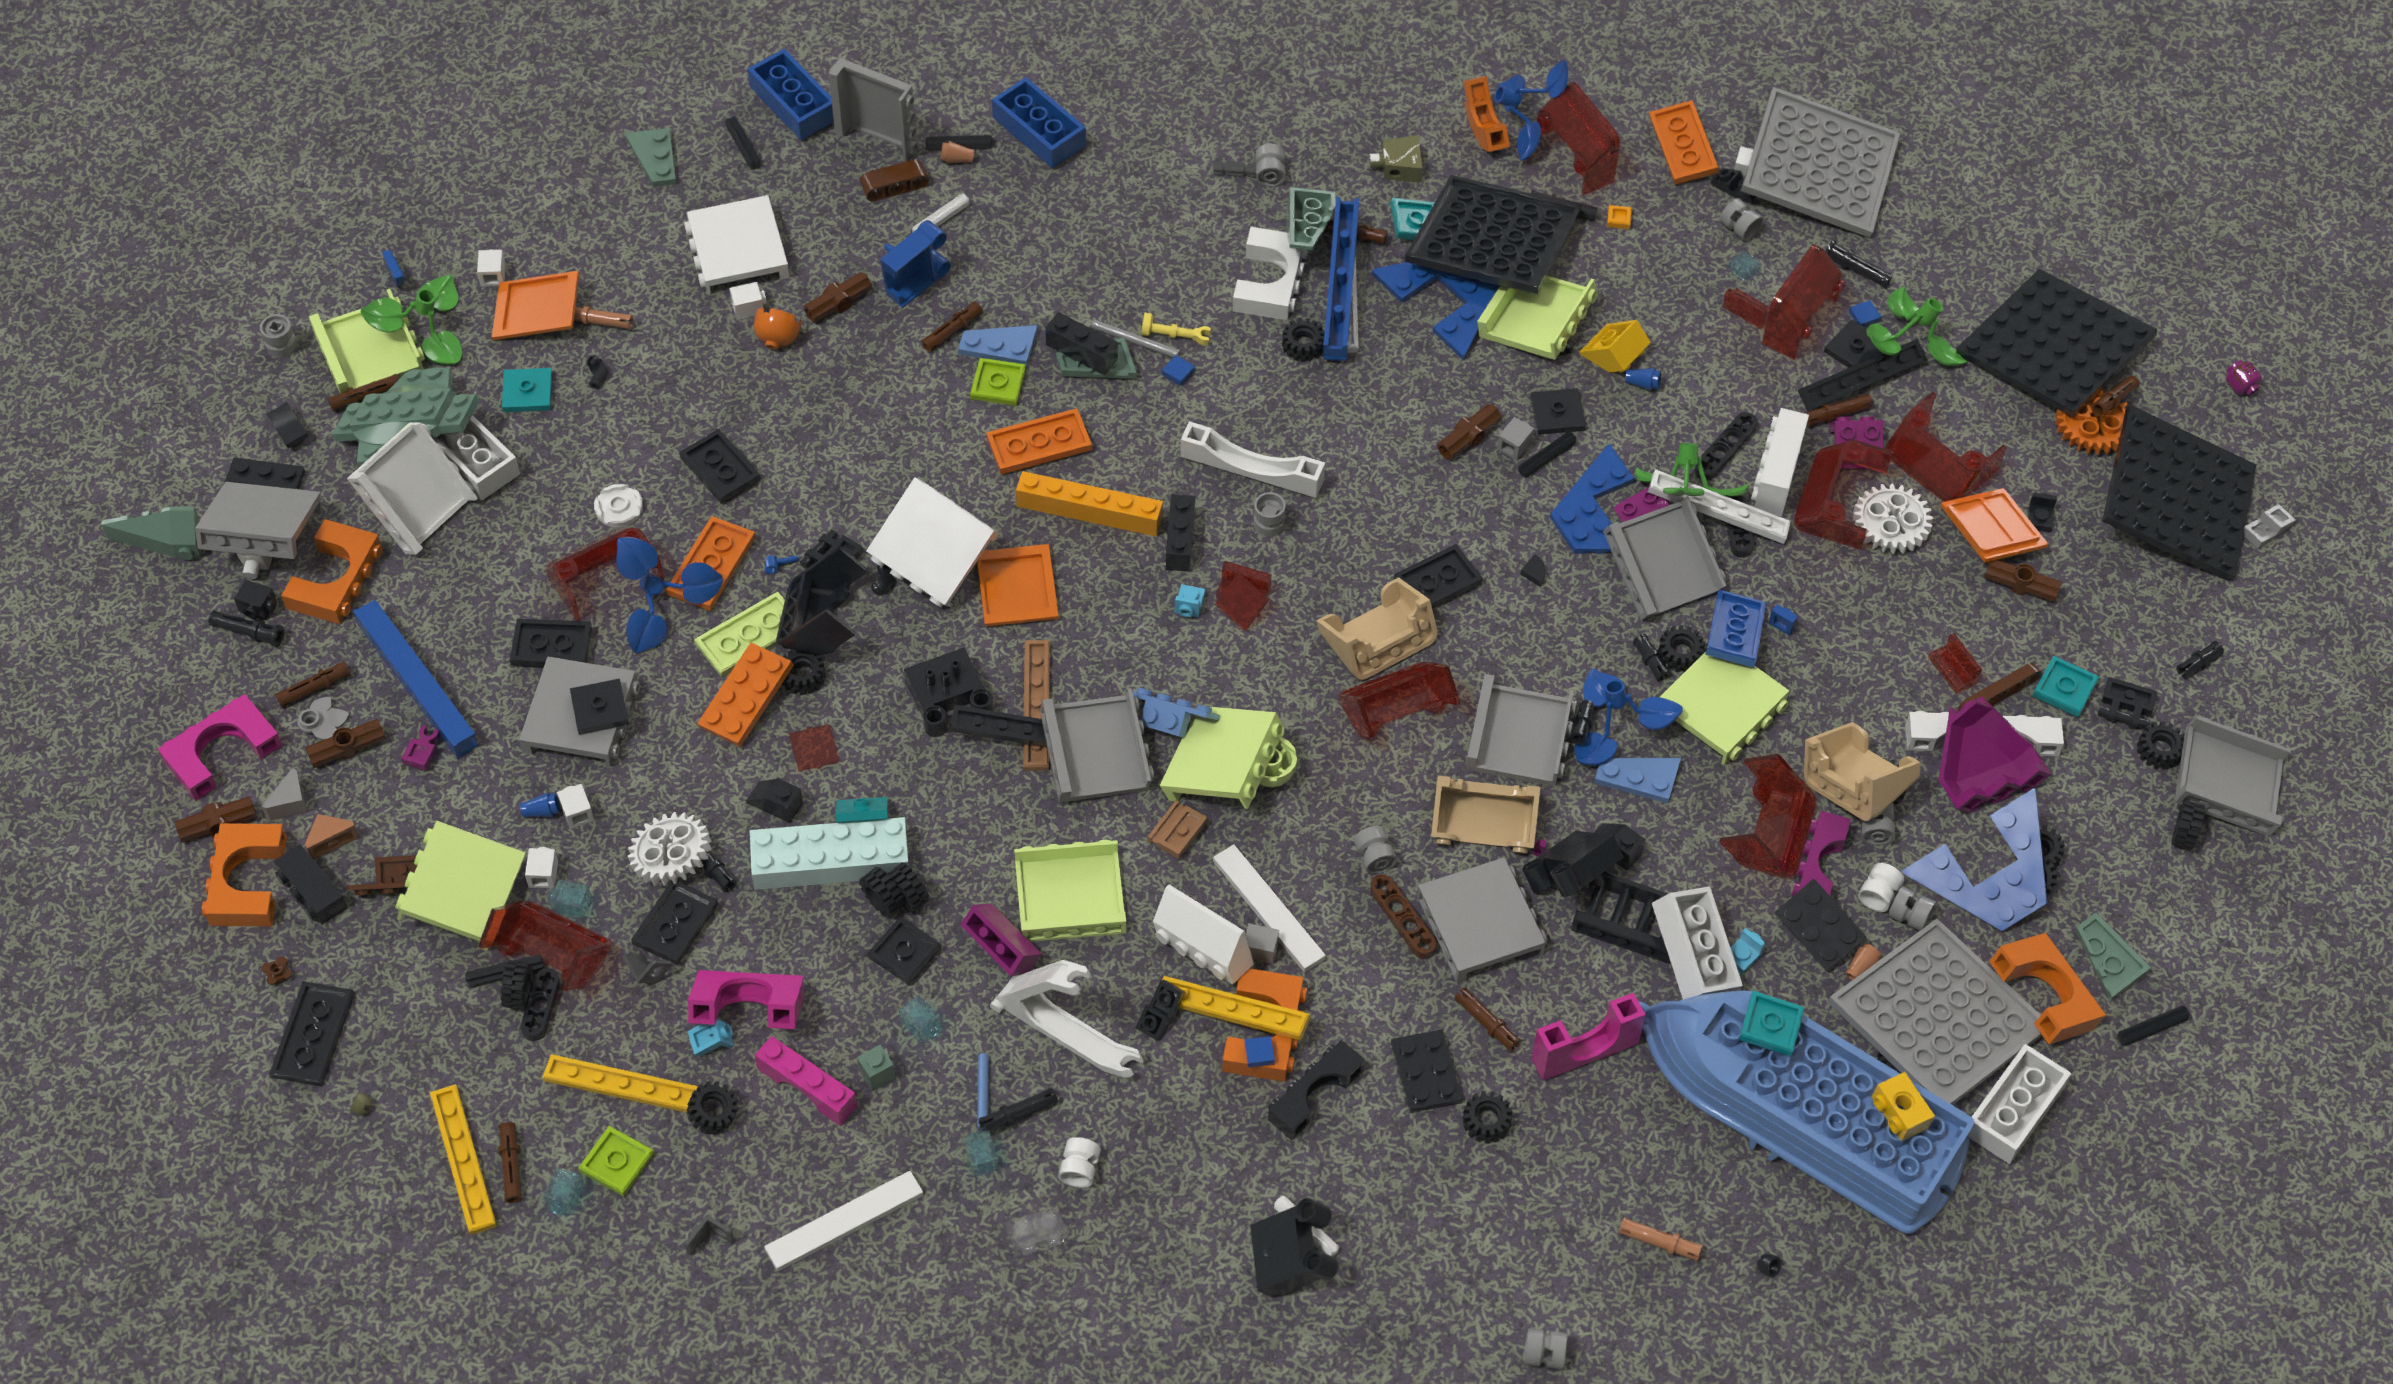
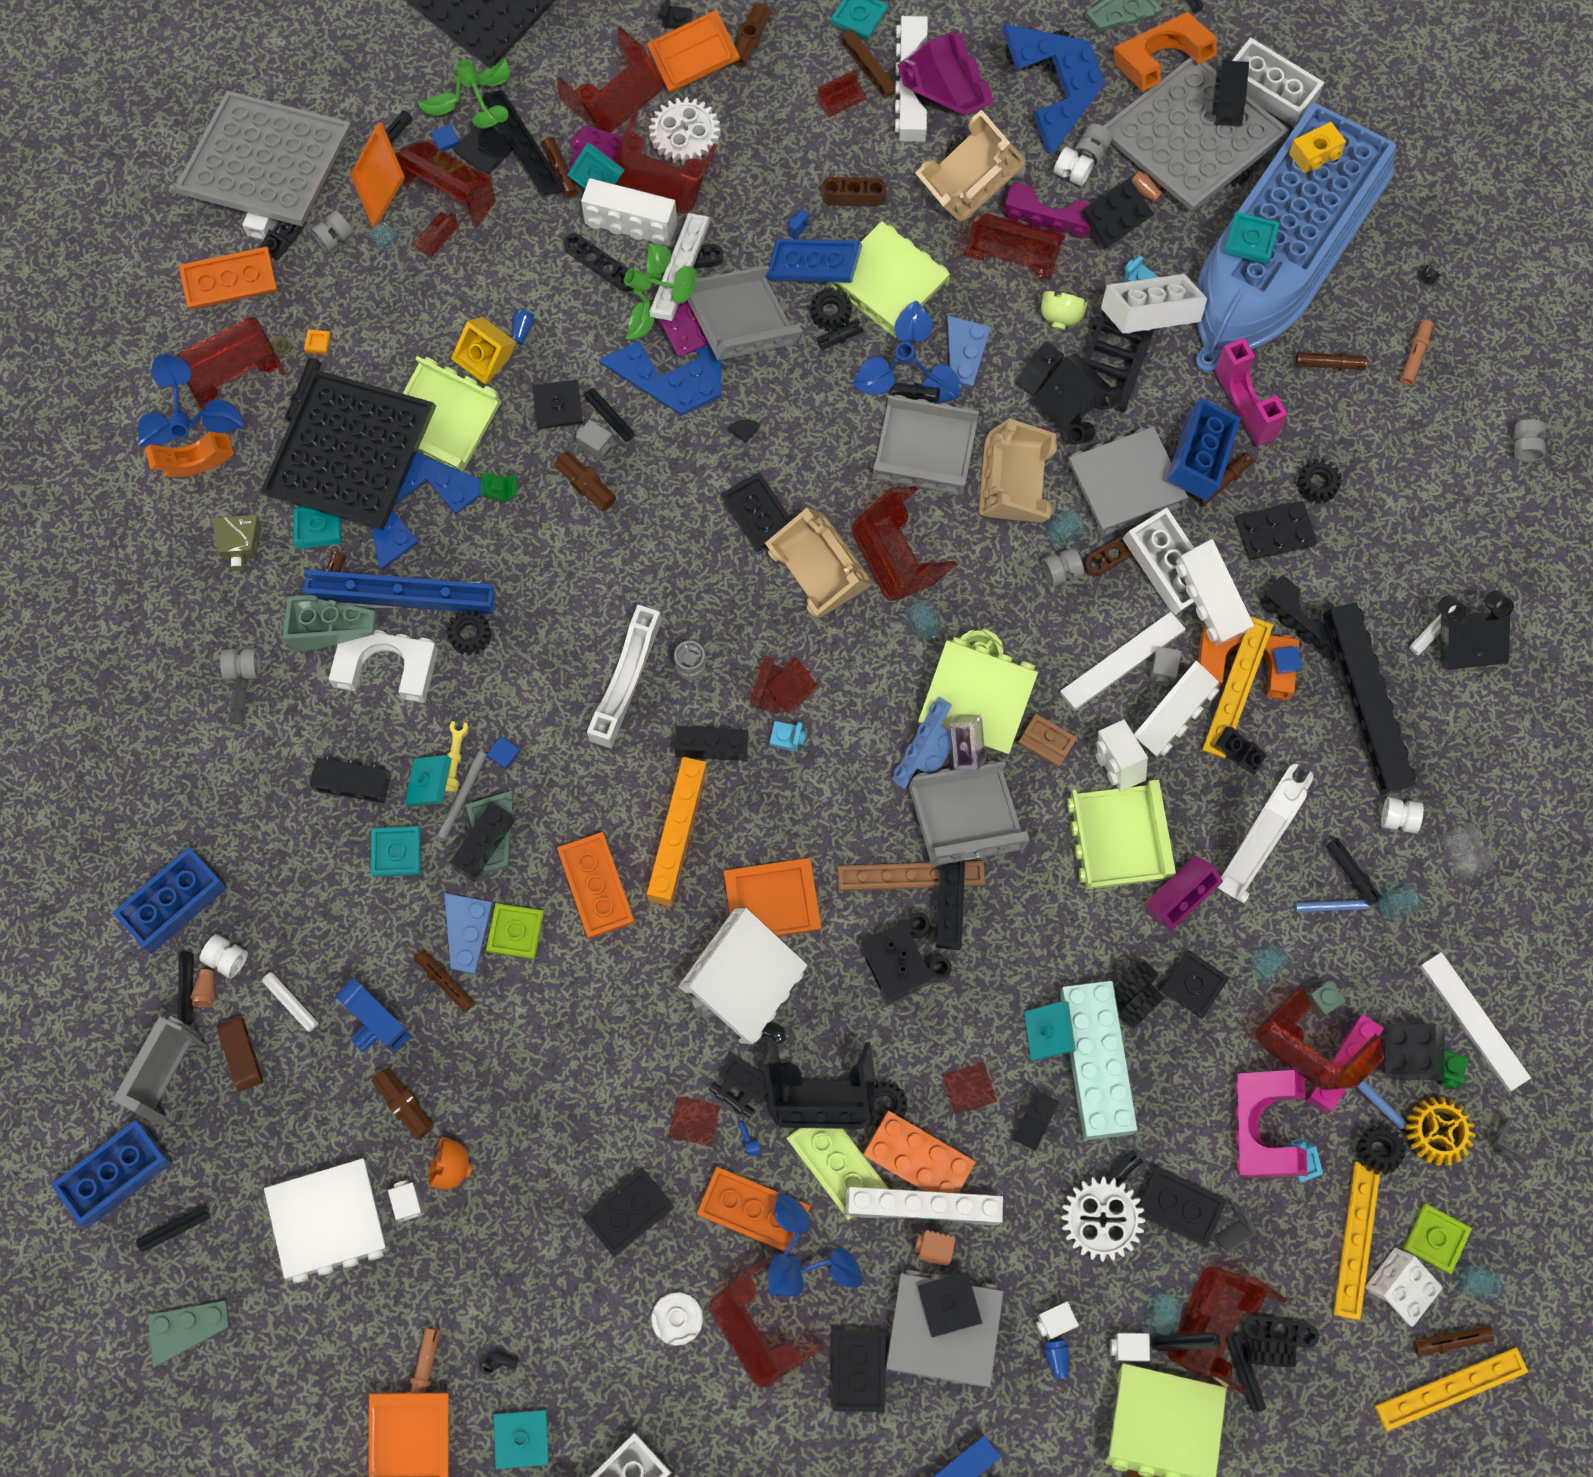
camera: 90 degrees left, 15 degrees up
(537, 904) = (1186, 1341): none -> black axle
(568, 1121) = (1404, 1285): none -> white bracket
(655, 700) = (935, 1247): none -> nougat brick
(691, 724) = (924, 1205): none -> white arch
(745, 1157) = (1445, 1139): none -> yellow gear
(762, 1106) = (1382, 1104): none -> medium blue bar
(791, 1190) = (1454, 1070): none -> green bracket
(802, 521) = (694, 1121): none -> clear red piece
(810, 1143) = (1415, 1052): none -> black brick
(819, 1014) = (1285, 1041): none -> clear red windscreen
(984, 163) = (223, 956): none -> white wheel
(1080, 288) = (396, 851): none -> teal plate
(1146, 882) = (1121, 756): none -> white brick
(1147, 306) = (428, 781): none -> teal plate
(1152, 251) = (350, 779): none -> black brick
(1168, 737) = (967, 742): none -> brick
(1213, 1132) = (1369, 698): none -> black brick
(1314, 720) = (923, 620): none -> clear light blue brick
(1331, 970) = (1214, 593): none -> white slope
(1378, 946) = (1157, 547): none -> white brick
(1422, 857) = (1065, 528): none -> clear light blue brick
(1459, 358) = (498, 487): none -> green bracket
(1515, 984) = (1203, 449): none -> blue brick
(1610, 184) = (283, 350): none -> olive hinge
(1644, 1153) = (1323, 360): none -> reddish brown pin
(1690, 861) = (1063, 309): none -> yellowish green cylinder
(1802, 244) = (377, 175): none -> orange piece
(1824, 429) = (594, 165): none -> teal plate
(1831, 663) = (844, 186): none -> reddish brown beam
(1981, 1036) = (1230, 93): none -> black brick

